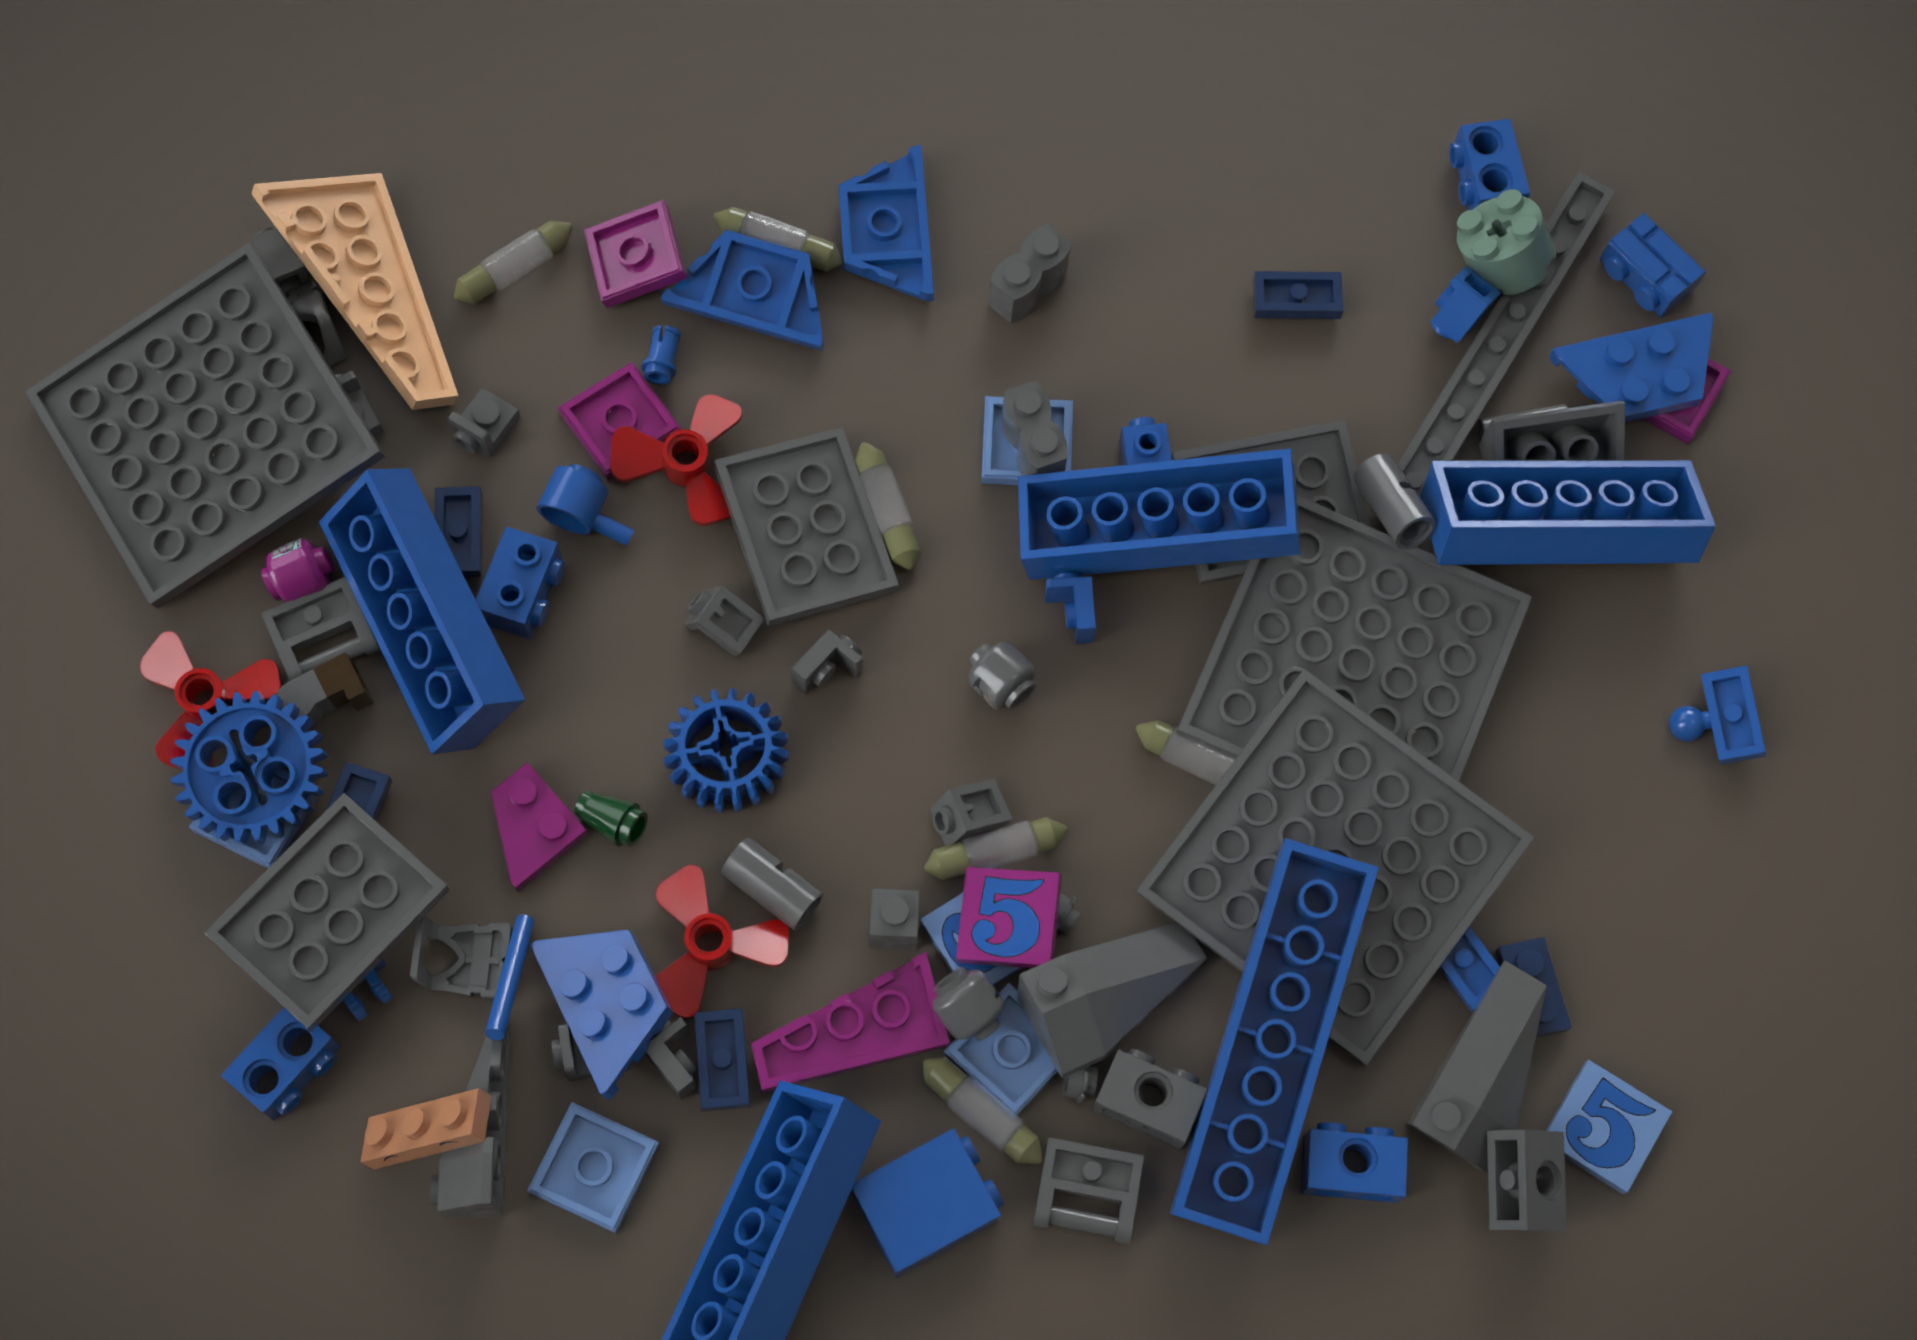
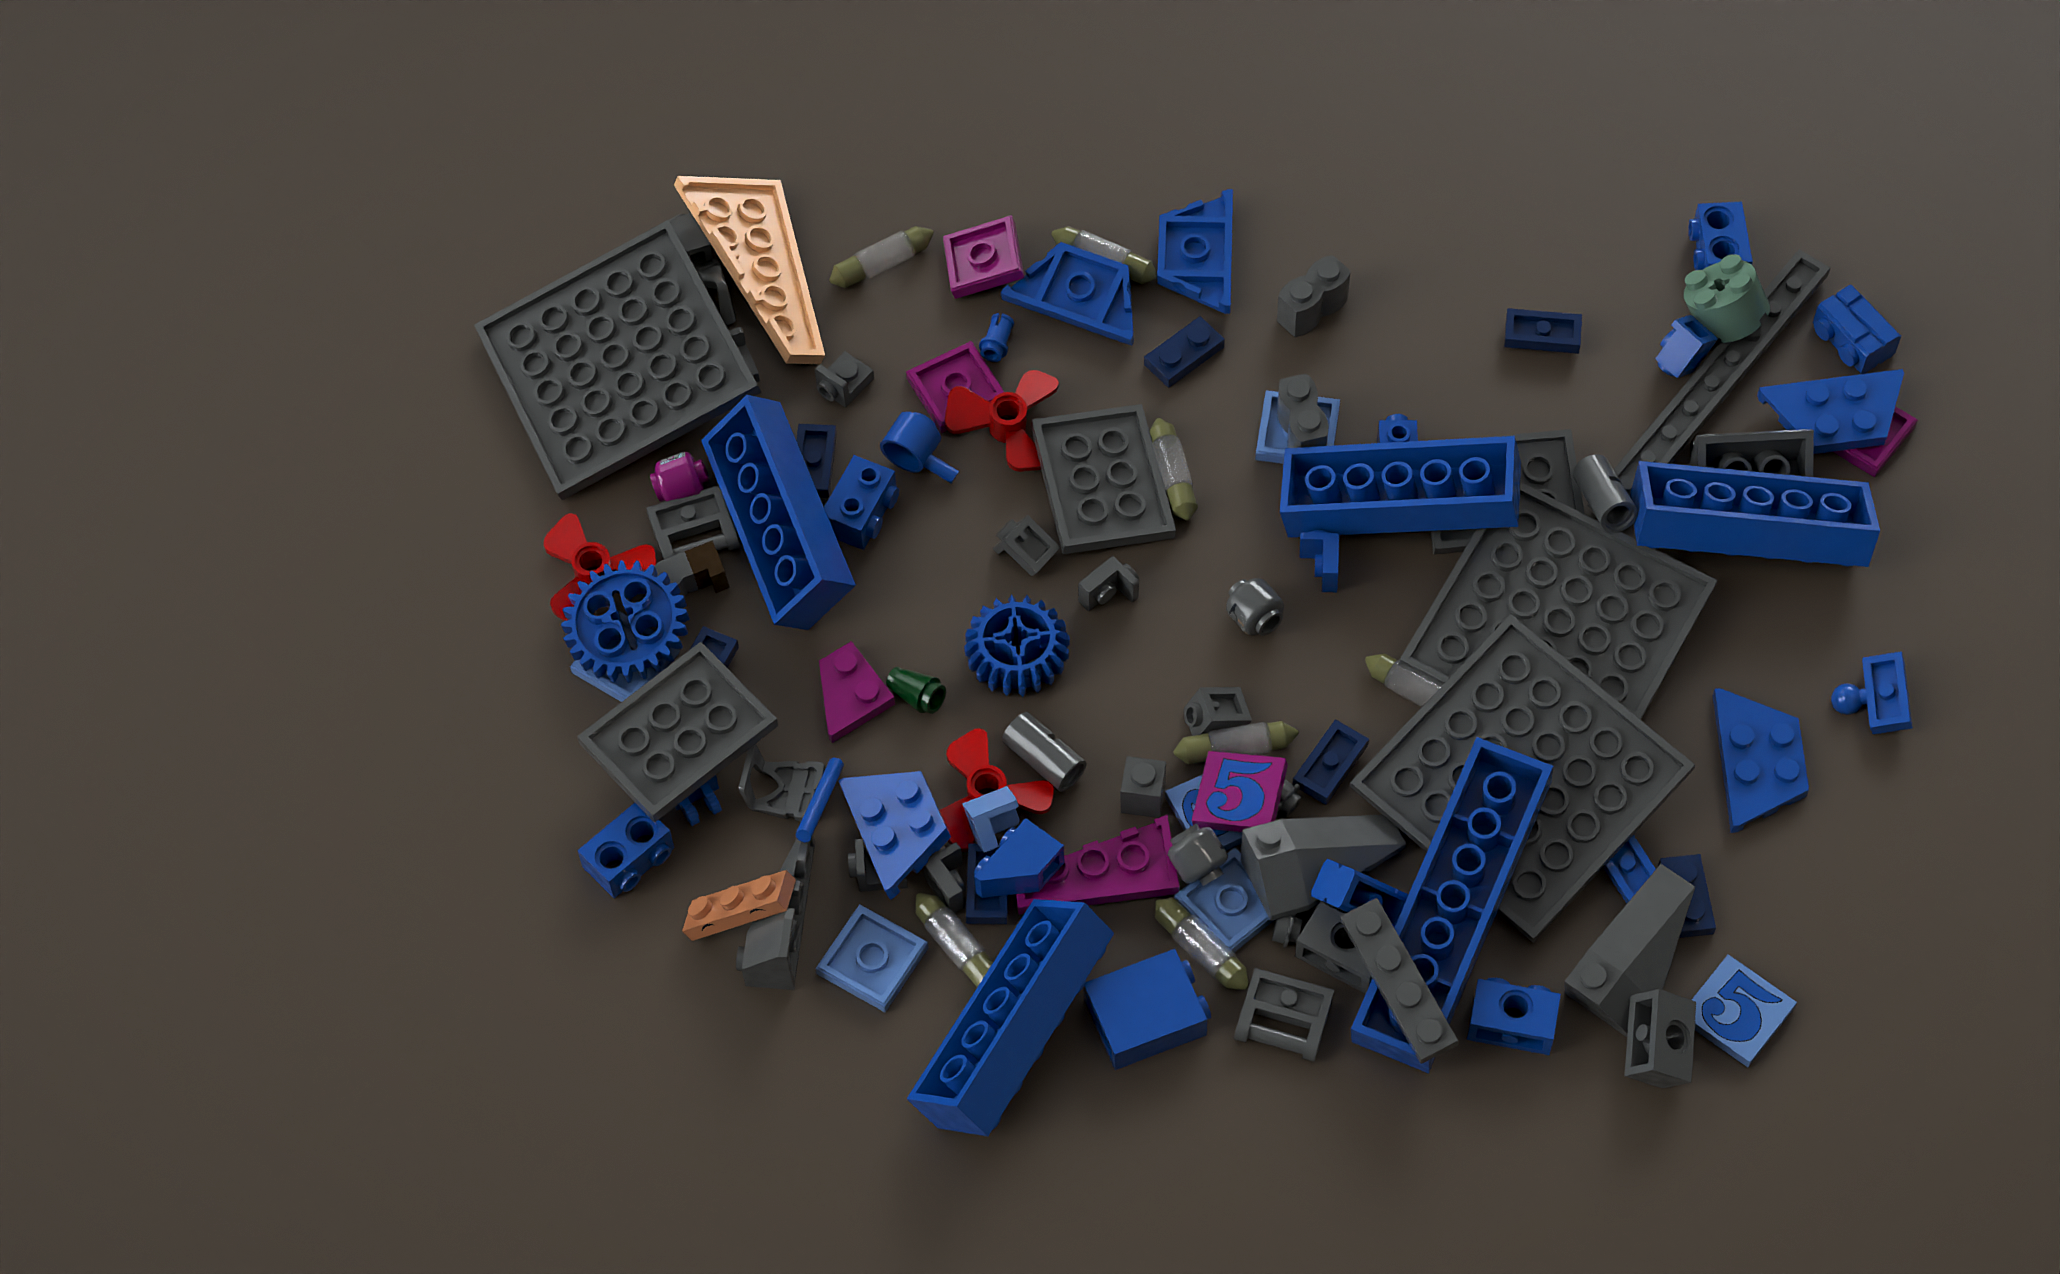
camera: 15 degrees right, 10 degrees down
(689, 1134) = (953, 937): none -> clear piece
(716, 977) = (991, 815): none -> medium blue panel
(761, 1038) = (1021, 863): none -> blue slope
(884, 354) = (1184, 351): none -> dark blue plate
(1109, 863) = (1330, 762): none -> dark blue plate
(1164, 1040) = (1350, 889): none -> blue brick
(1224, 1152) = (1399, 980): none -> dark grey plate
(1596, 808) = (1758, 758): none -> blue wing

